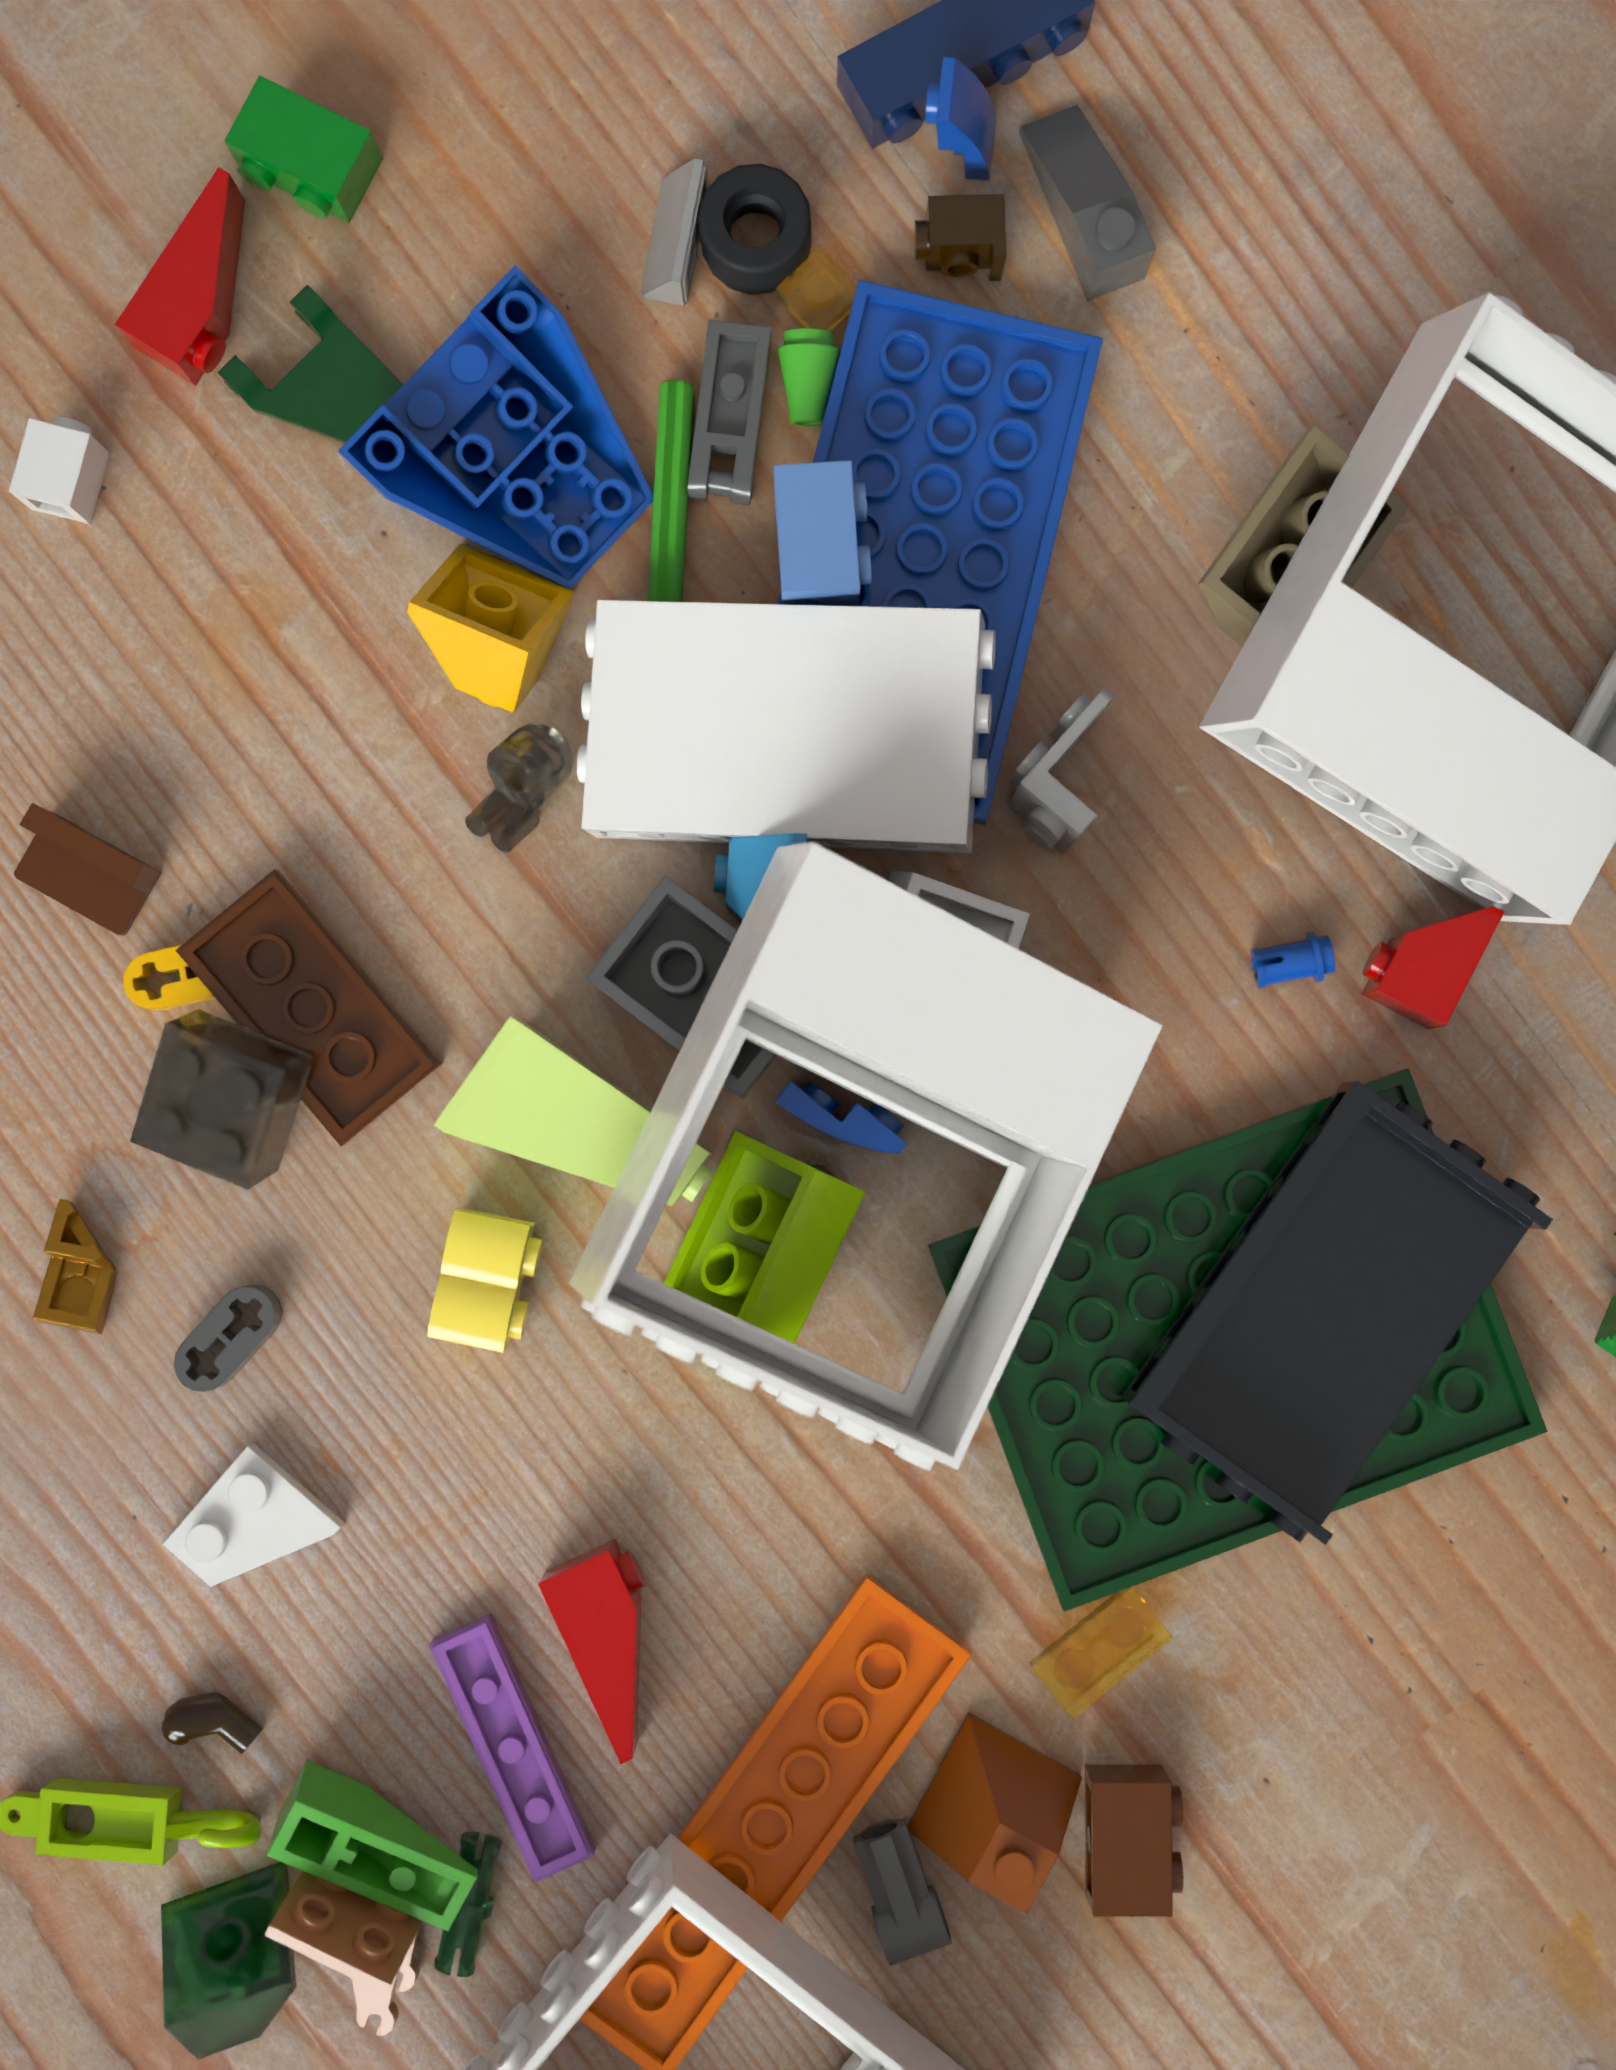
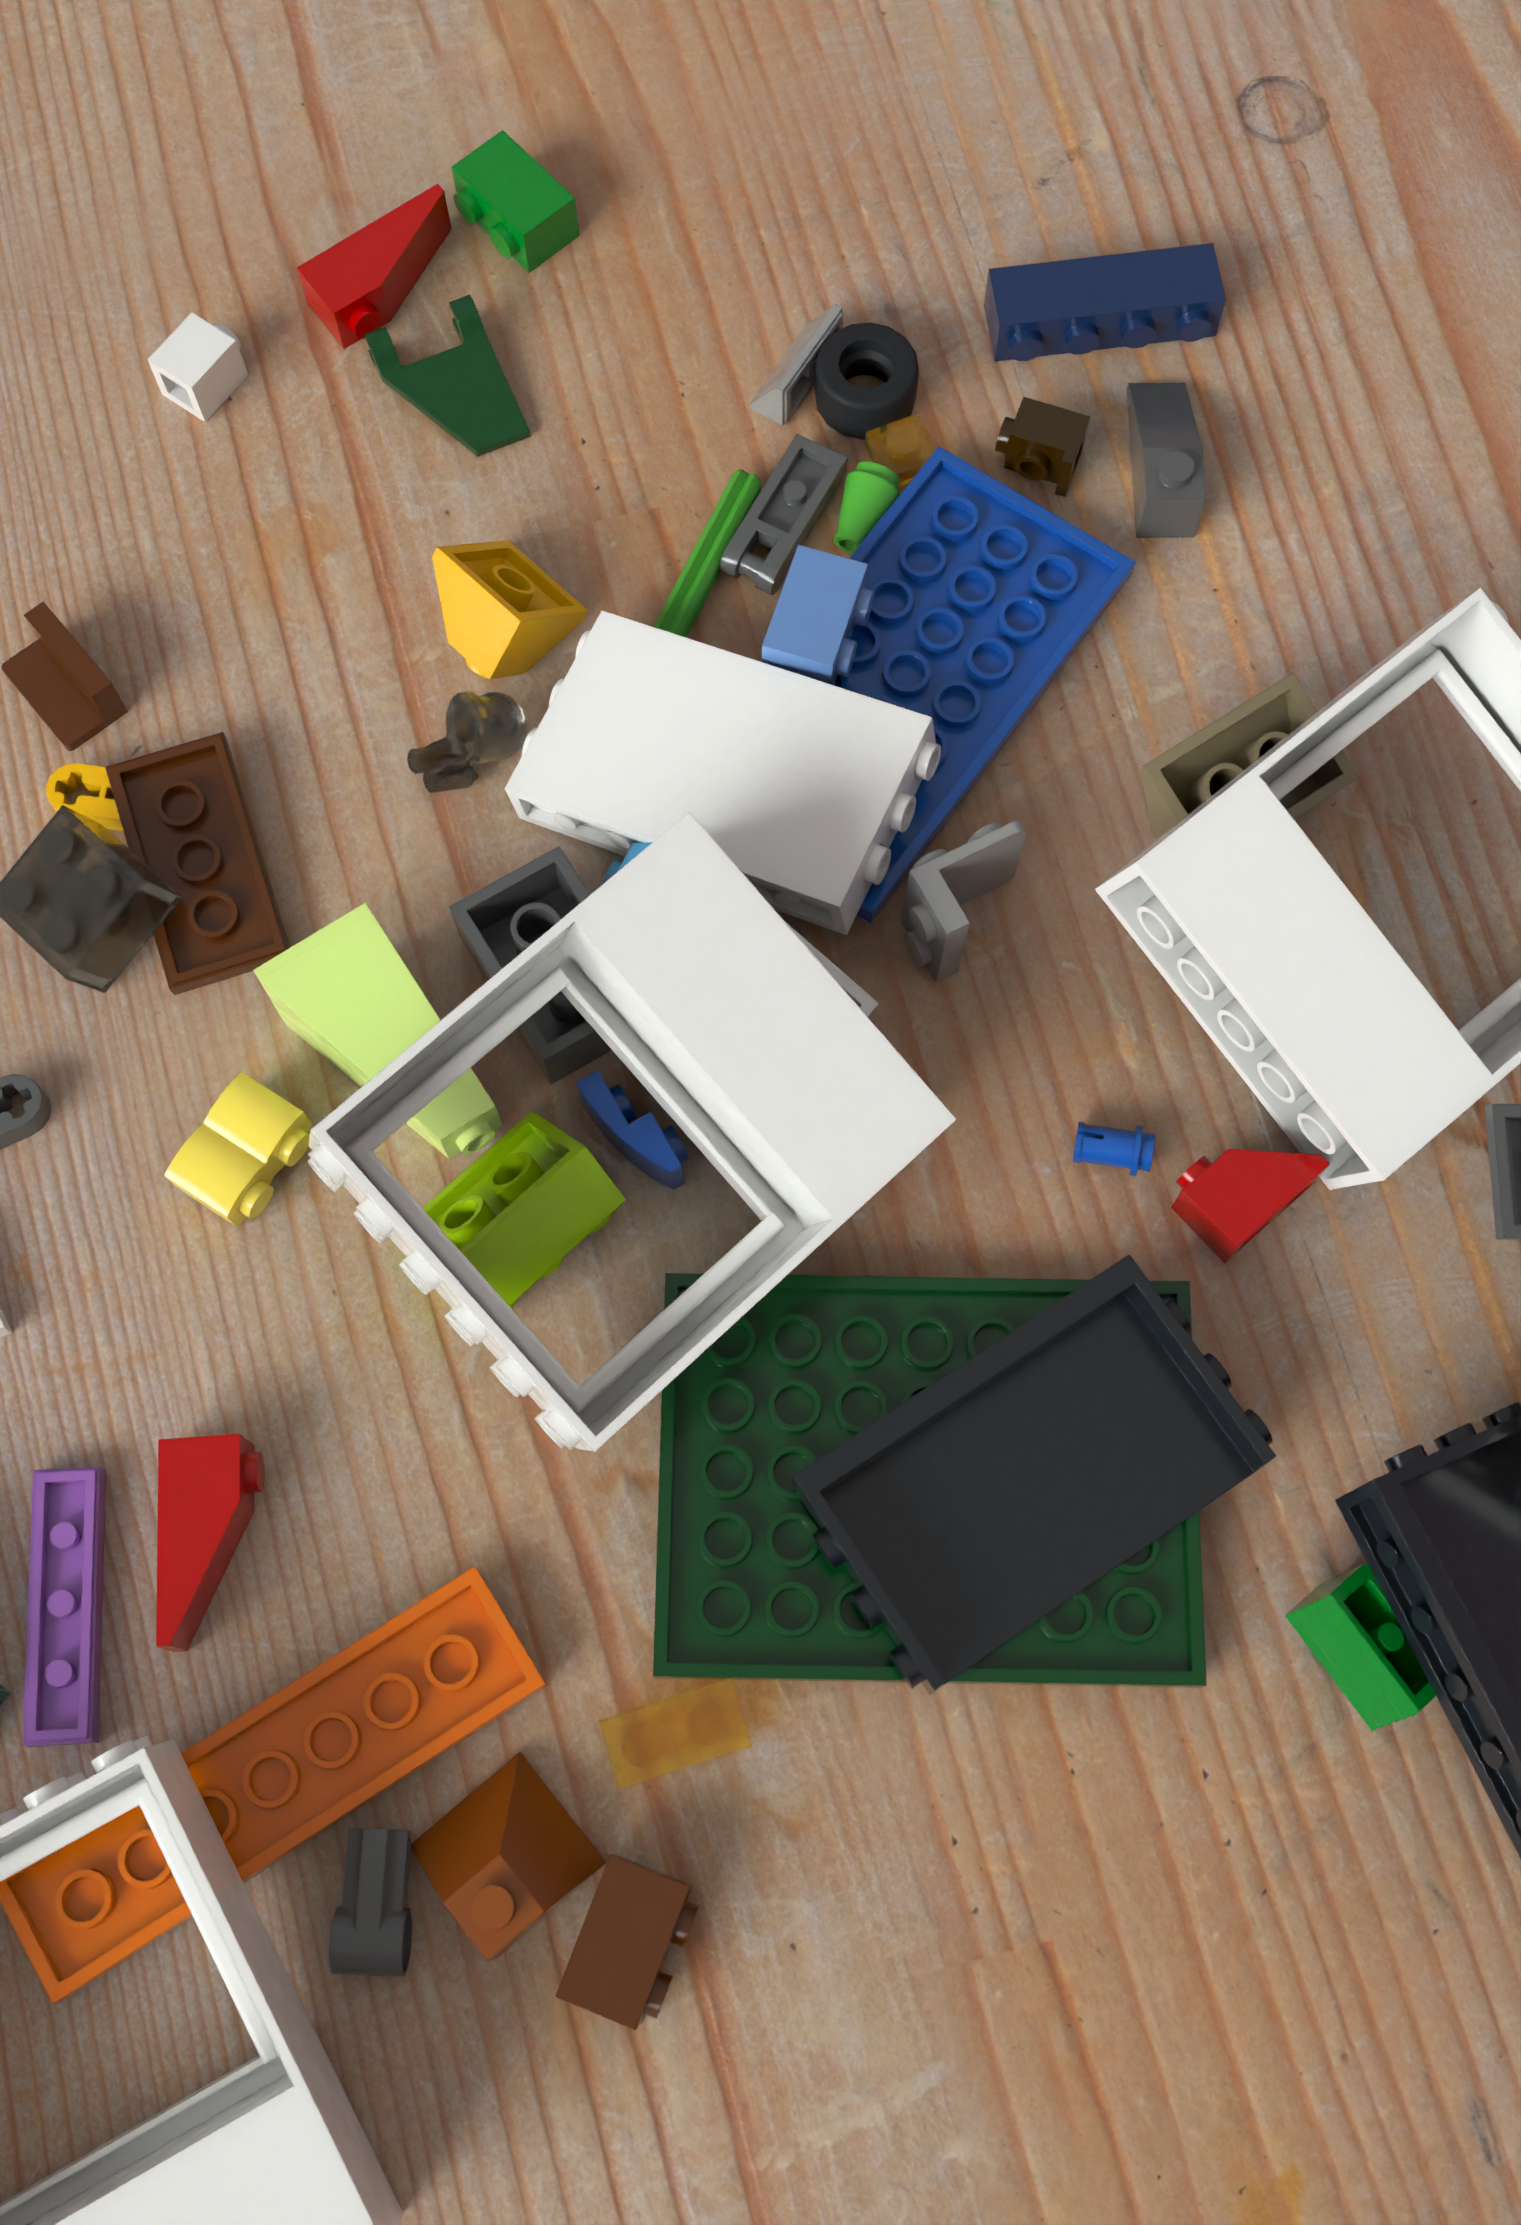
camera: 20 degrees right, 15 degrees down
(508, 440) = (583, 469): blue wedge -> none
(963, 117) = (1078, 348): blue slope -> none

